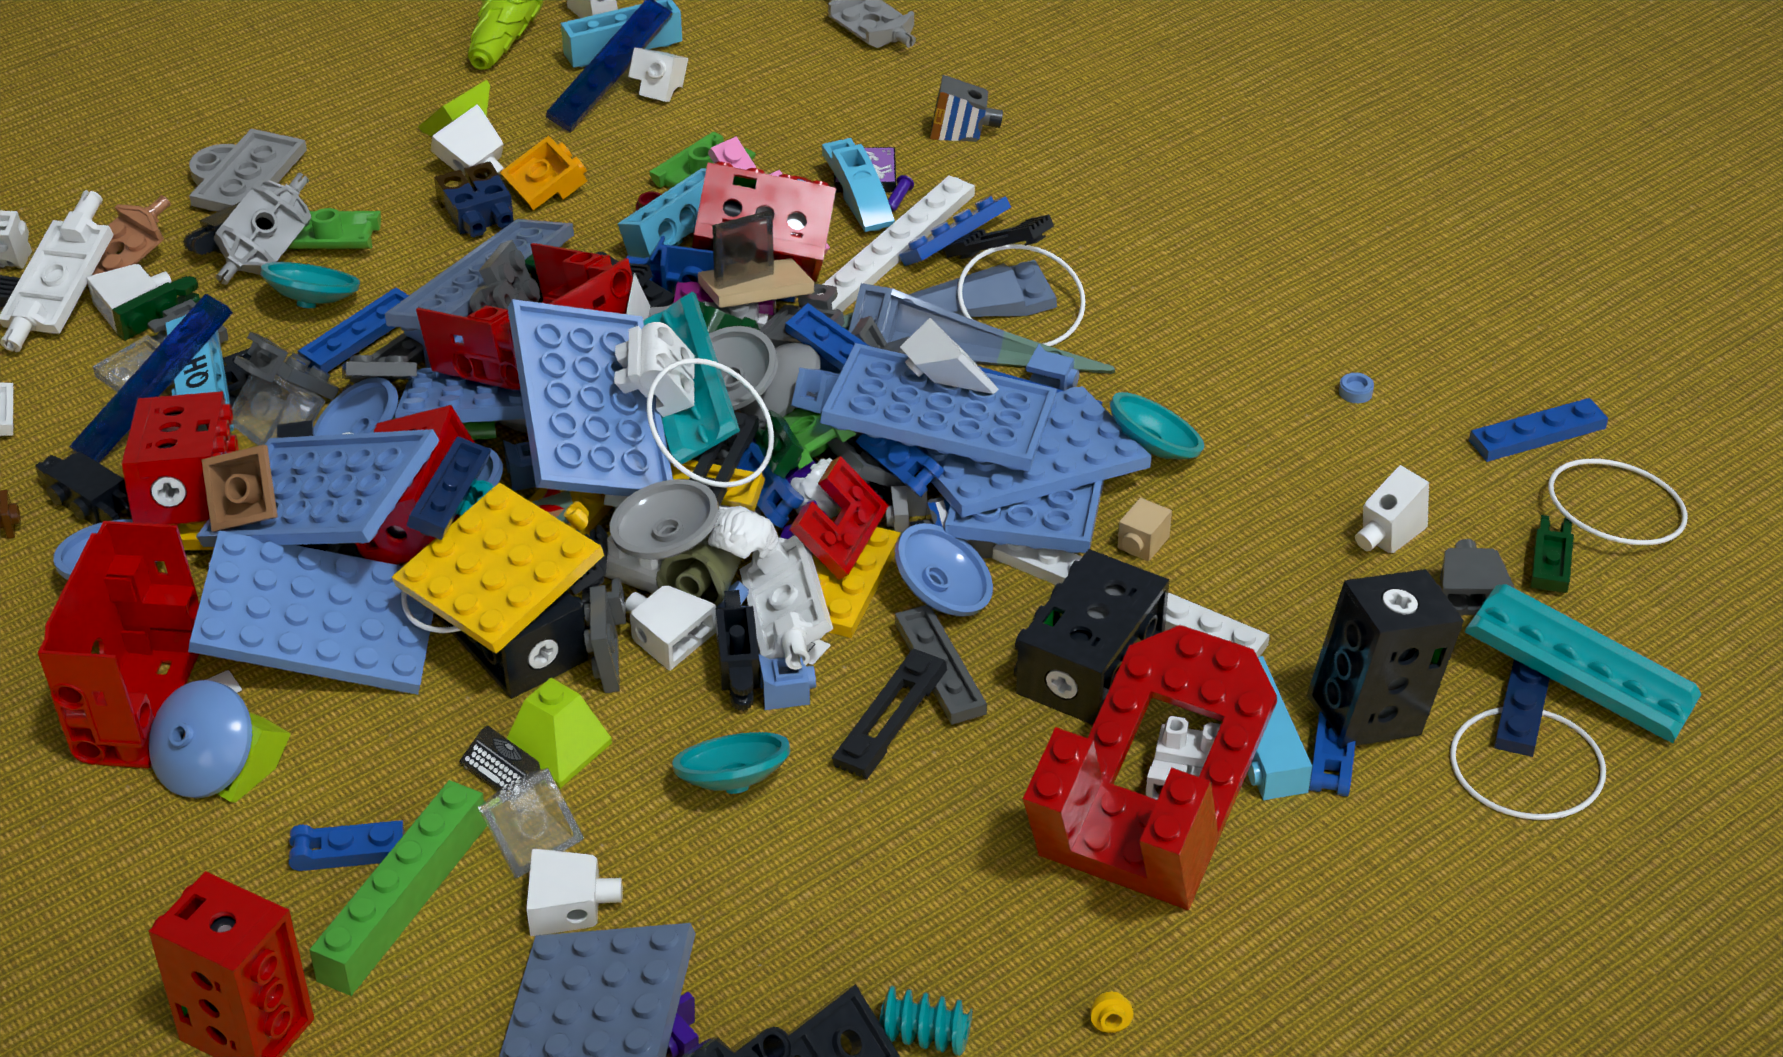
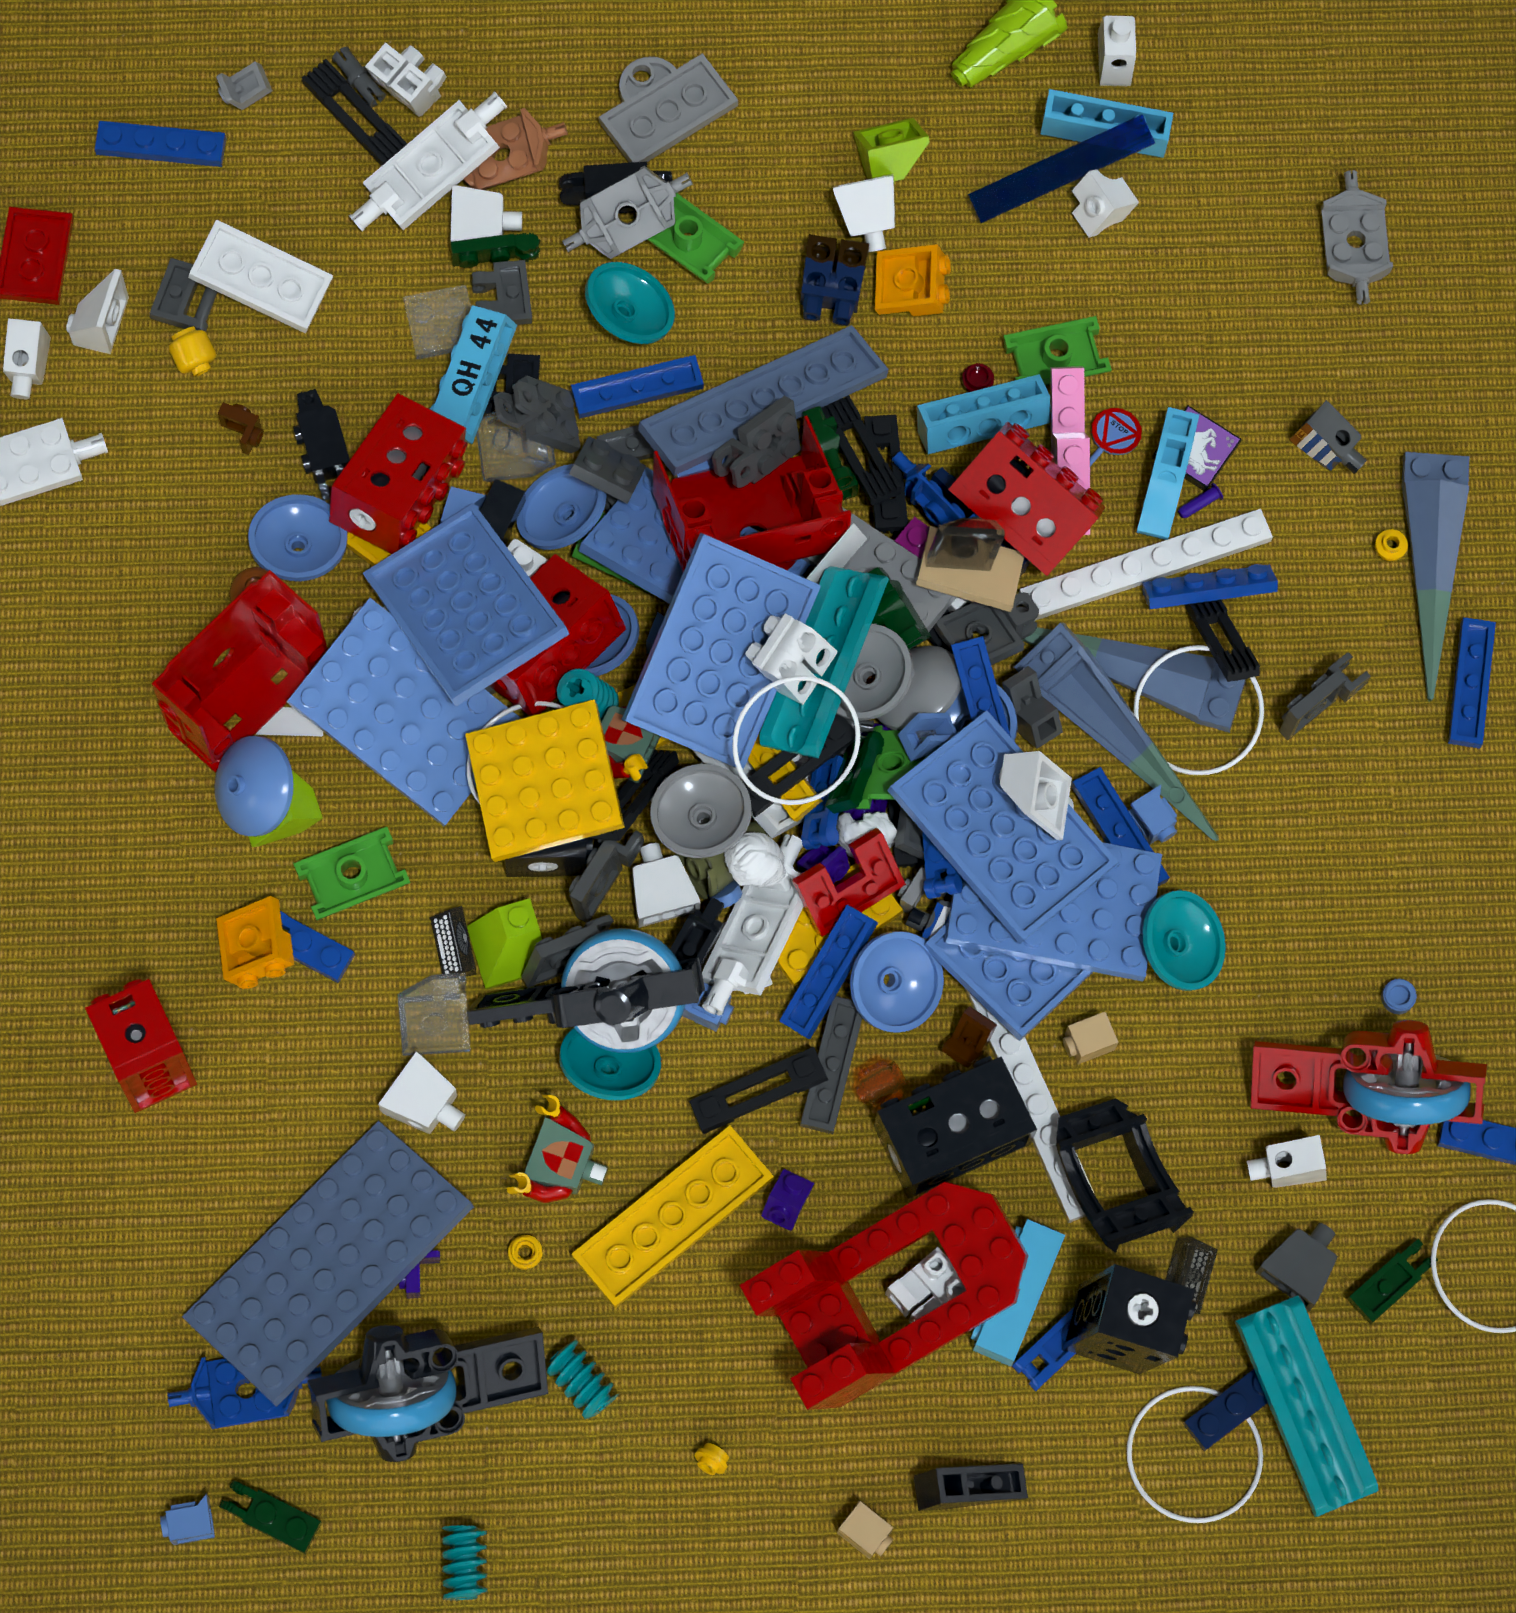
camera: 30 degrees right, 30 degrees up
(152, 377) = (430, 359): clear blue tile -> none
(239, 488) = (406, 564): medium nougat slope -> none
(293, 857) = (254, 943): none -> light orange plate
(350, 766) = (336, 892): none -> bright green piece
(398, 888) = (313, 1016): bright green brick -> none
(448, 488) = (554, 679): dark blue plate -> none
(620, 696) = (552, 955): none -> dark grey plate
(676, 687) = (601, 990): none -> piece
(744, 857) = (558, 1158): none -> torso
(773, 949) = (521, 1242): none -> yellow plate
(876, 595) = (828, 971): none -> blue plate
(894, 852) = (672, 1216): none -> yellow plate
(991, 779) = (787, 1199): none -> dark purple bracket
(994, 650) = (880, 1083): none -> clear orange head
(1041, 575) = (969, 1037): none -> reddish brown bracket
(1068, 153) = (1386, 552): none -> yellow plate
(1086, 123) = (1435, 508): none -> sand blue plate
(1112, 228) = (1324, 693): none -> dark grey plate
(1210, 192) = (1471, 682): none -> blue plate
(1303, 601) = (1136, 1218): none -> black wedge
(1311, 980) = (866, 1531): none -> tan brick
(1363, 891) = (969, 1486): none -> black slope
(1431, 408) = (1392, 1085): none -> red piece

